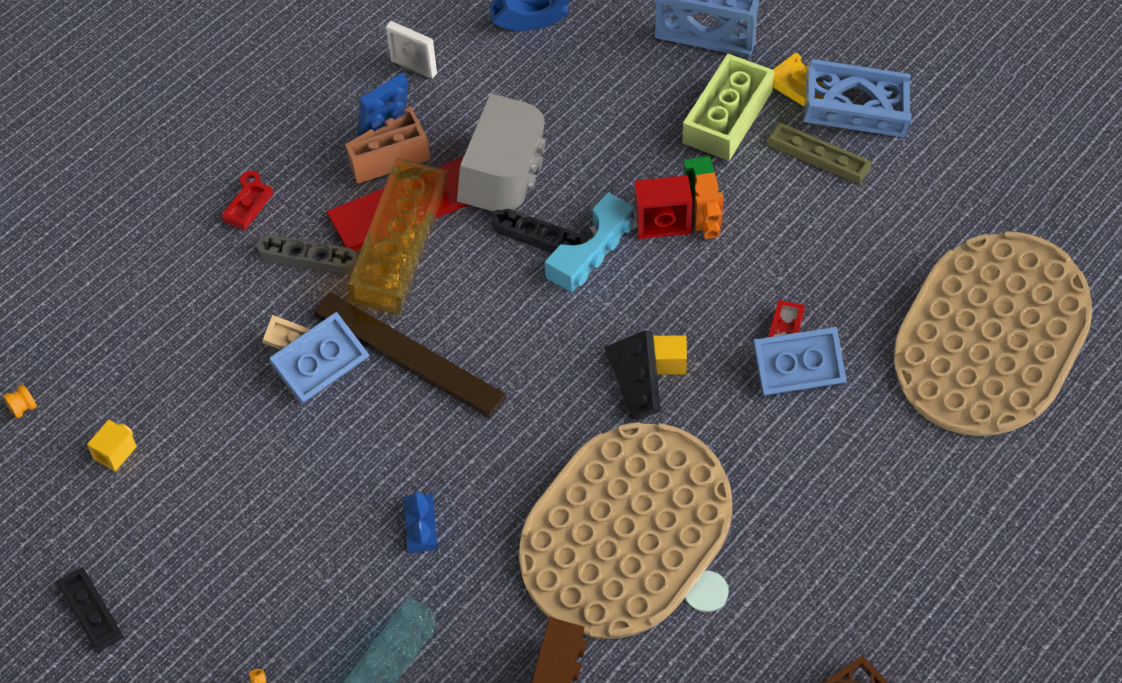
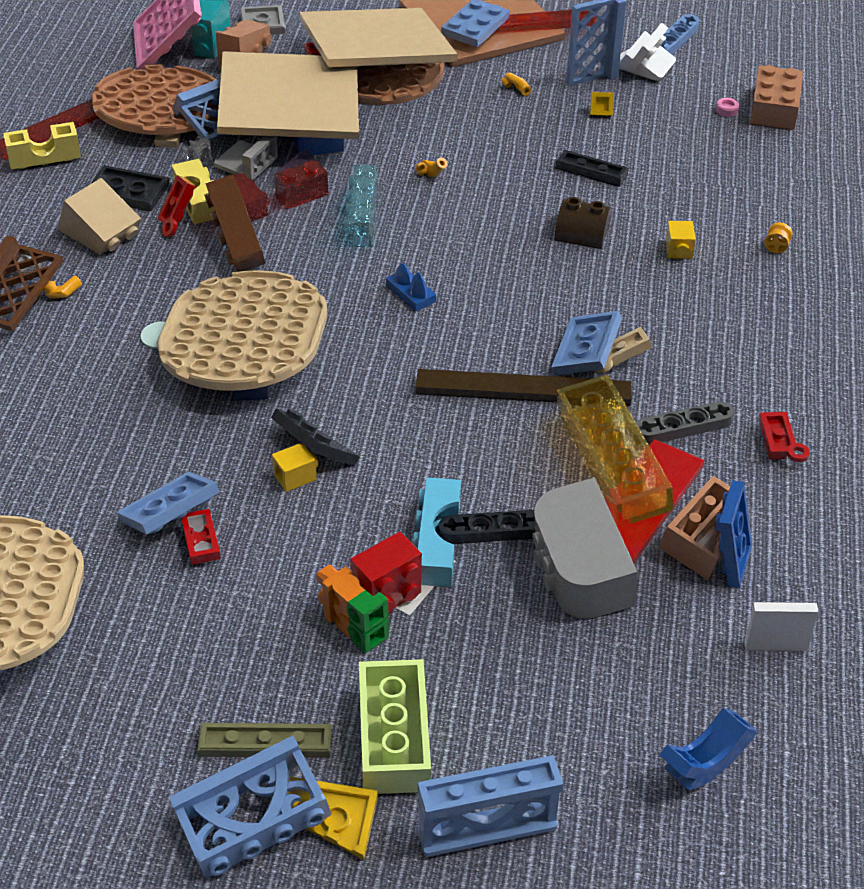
camera: 145 degrees right, 10 degrees down
(177, 520) = (582, 222): none -> dark brown brick

